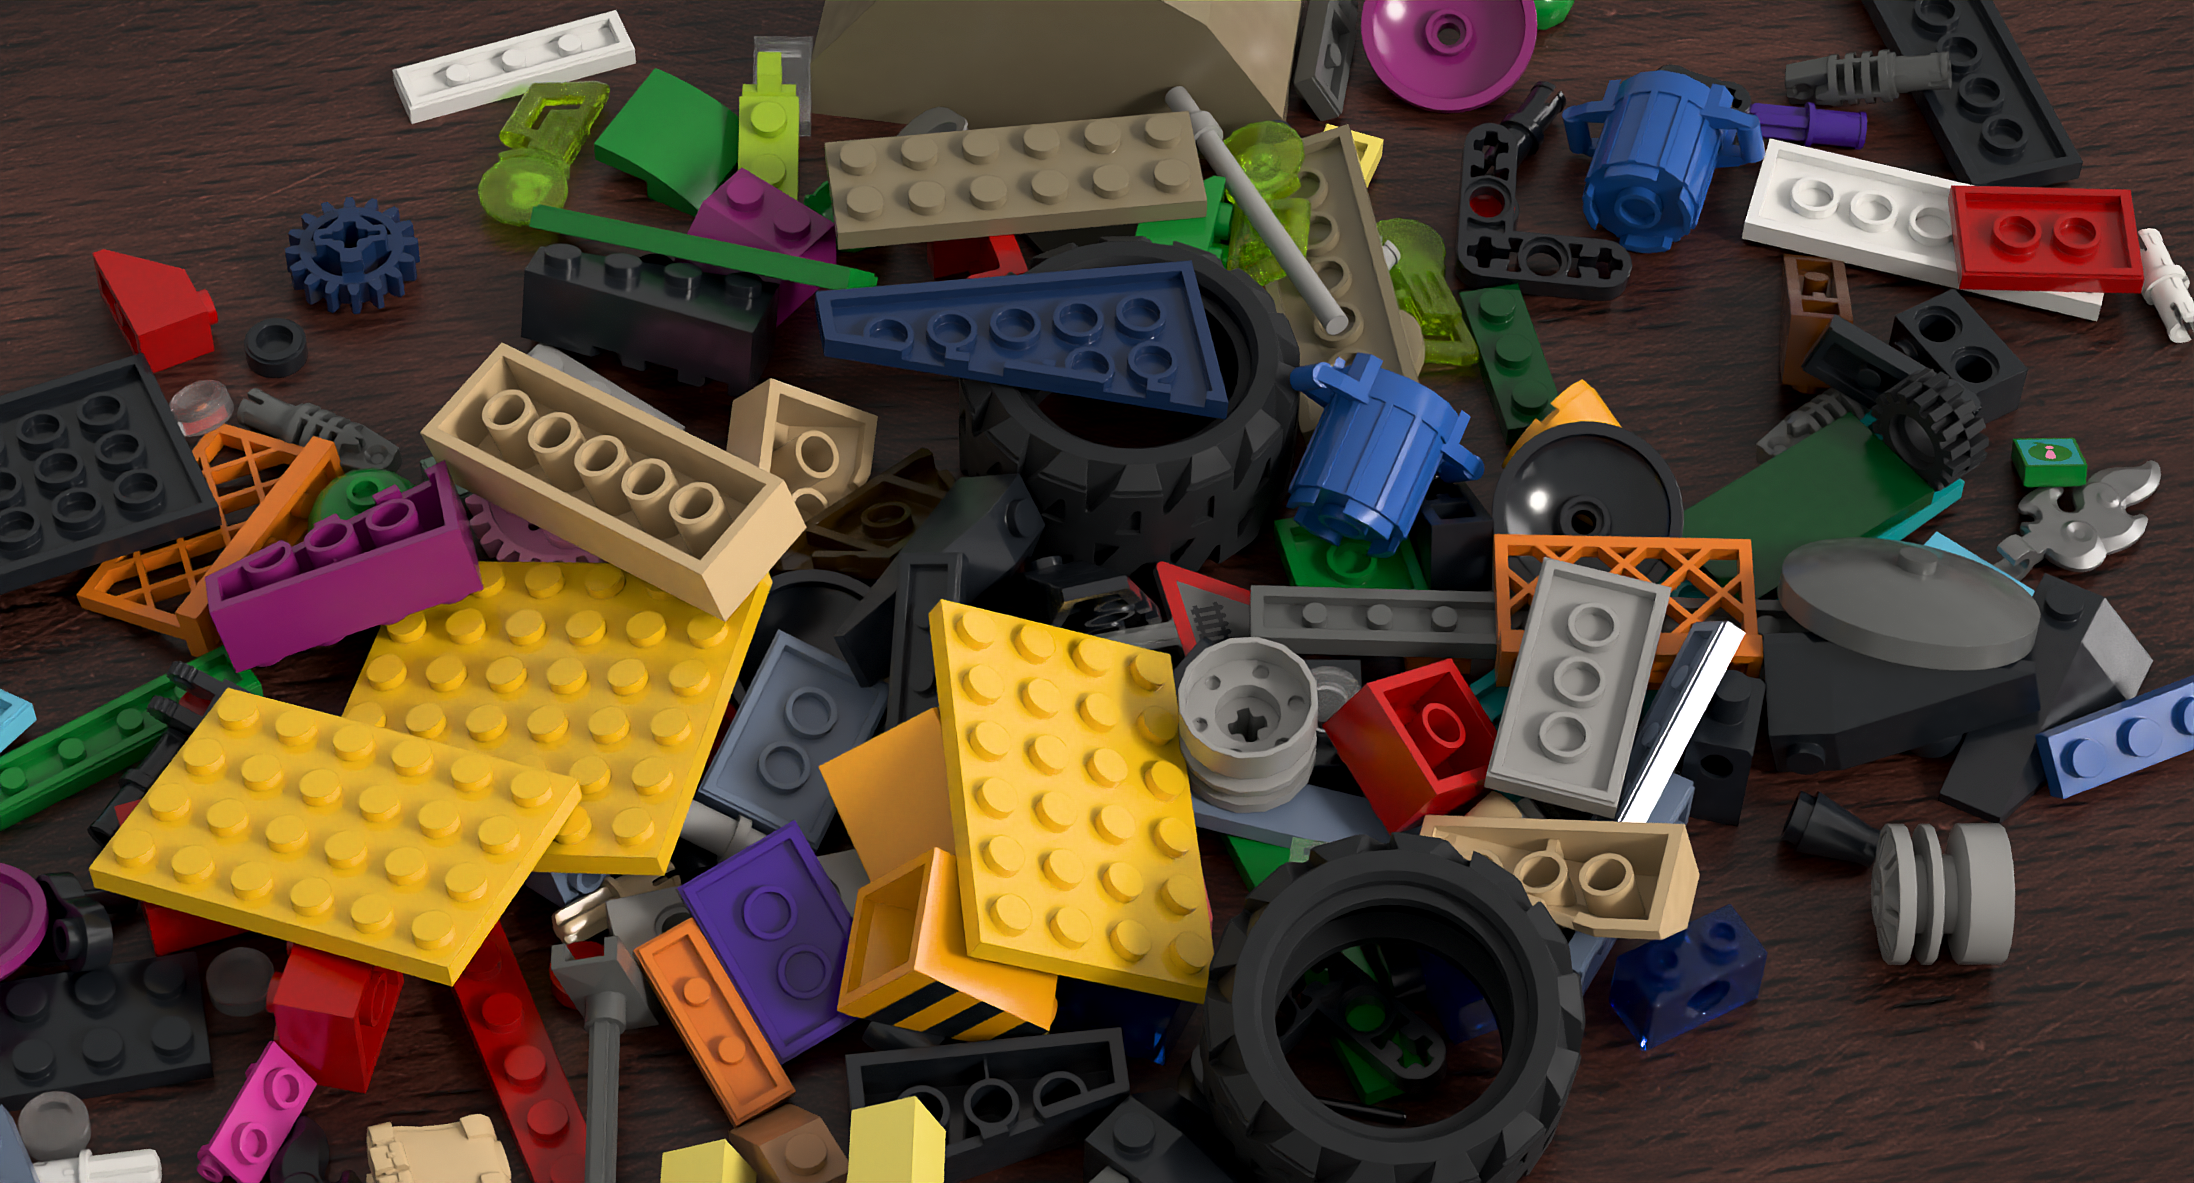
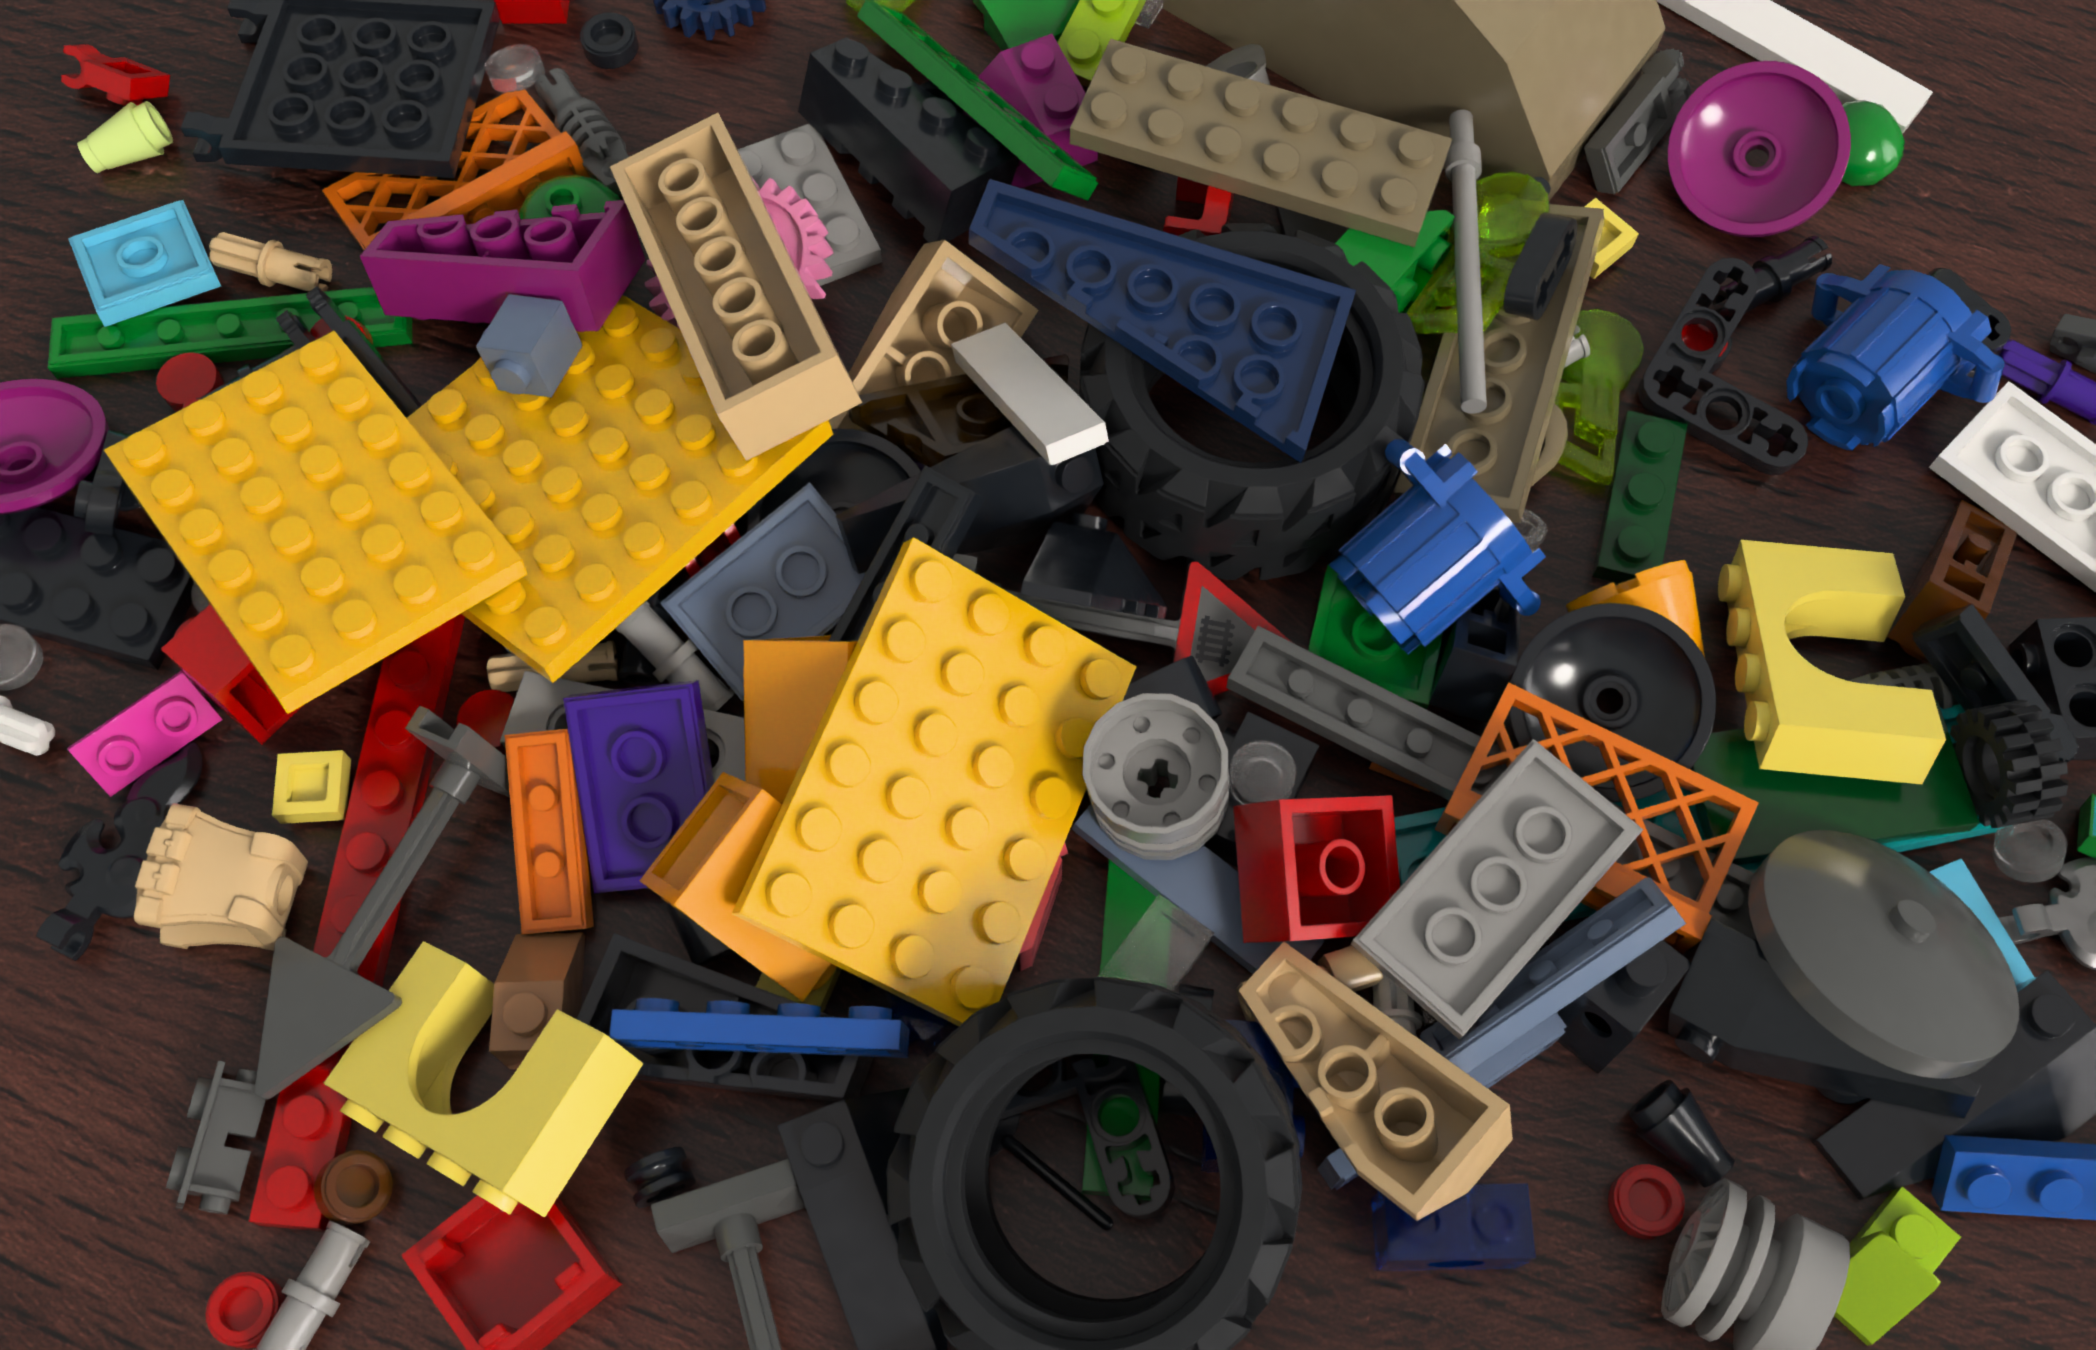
camera: 30 degrees right, 15 degrees up
(63, 818) = (187, 376): none -> red tile
(75, 677) = (269, 262): none -> tan axle
(428, 625) = (529, 345): none -> sand blue brick
(452, 1090) = (311, 786): none -> light yellow plate
(933, 472) = (1030, 394): none -> white tile
(1053, 1050) = (731, 1028): none -> blue plate
(1324, 190) = (1540, 266): none -> black beam
(1740, 459) = (1798, 712): none -> light yellow arch
(1831, 898) = (1646, 1201): none -> red tile
(1987, 502) = (2030, 850): none -> clear tile
(2046, 857) = (1892, 1265): none -> lime slope

